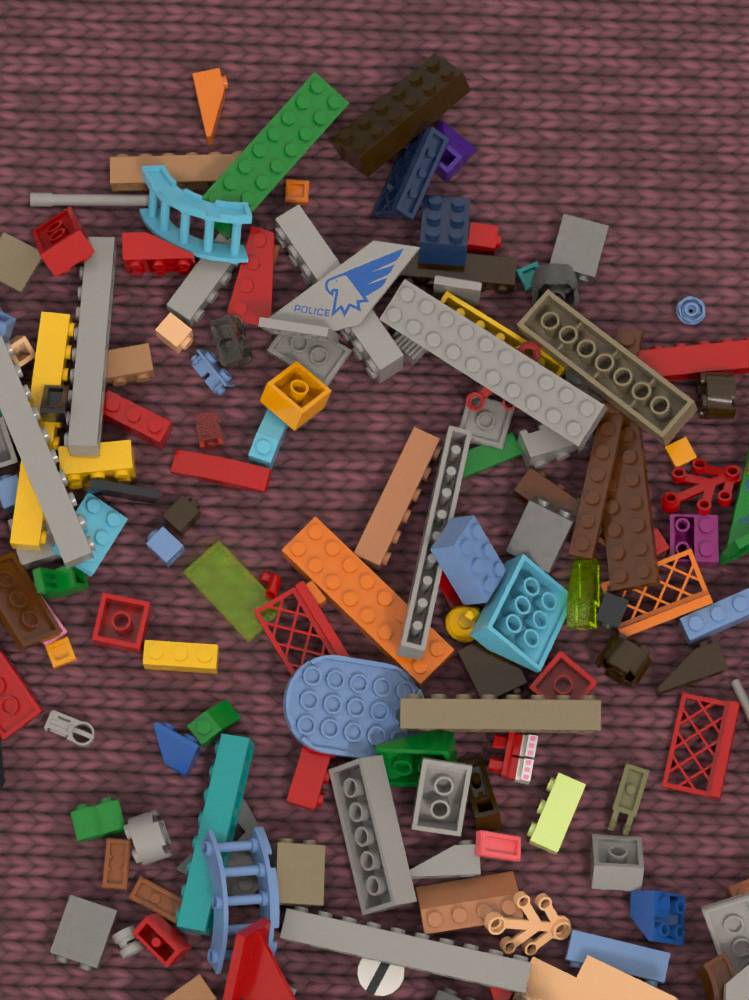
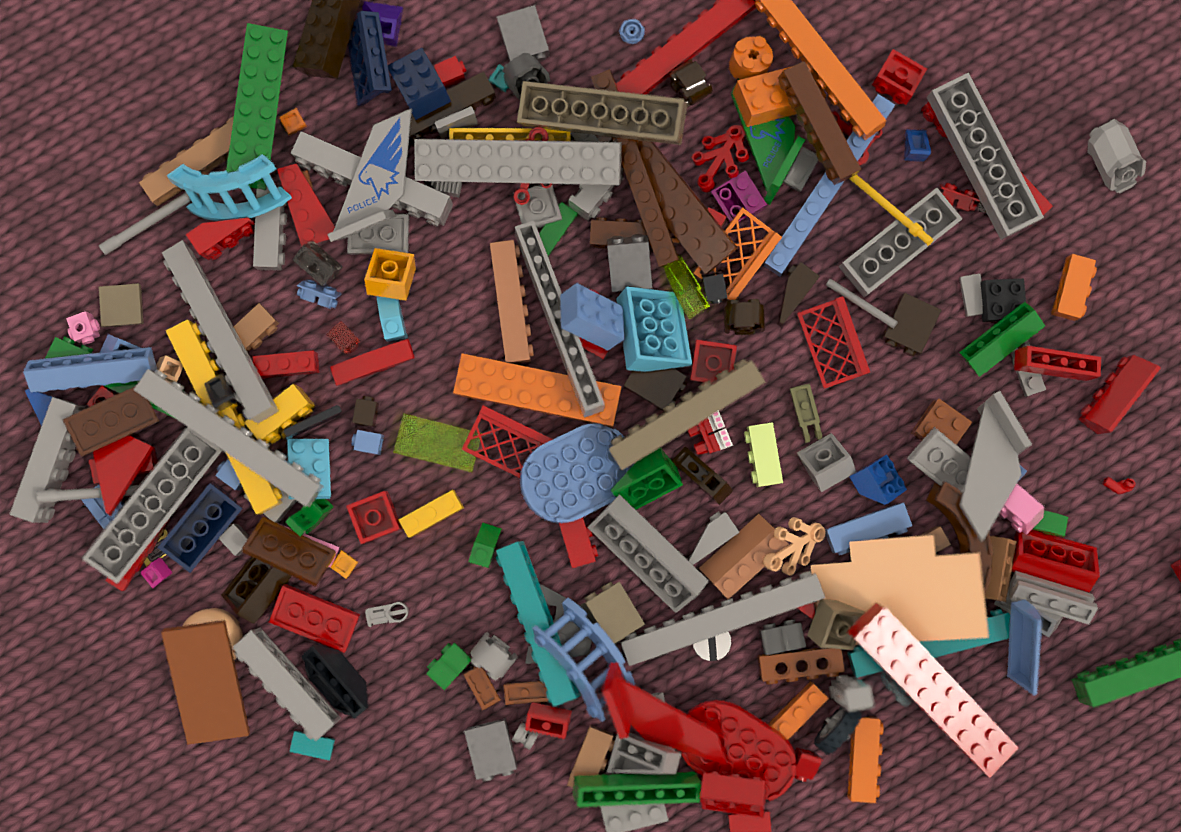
camera: 30 degrees left, 10 degrees up
(62, 242) = (146, 268): red slope -> none
(174, 333) = (273, 283): light nougat brick -> none
(178, 751) = (471, 583): blue slope -> none
(211, 97) = (180, 86): orange slope -> none
(272, 582) = (462, 419): red arm -> none
(317, 594) = (498, 408): orange tile -> none
(441, 797) = (679, 497): light grey slope -> none
(461, 621) = (613, 362): yellow hat -> none
(498, 846) = (738, 504): coral tile -> none
(680, 453) = (690, 141): light orange tile -> none

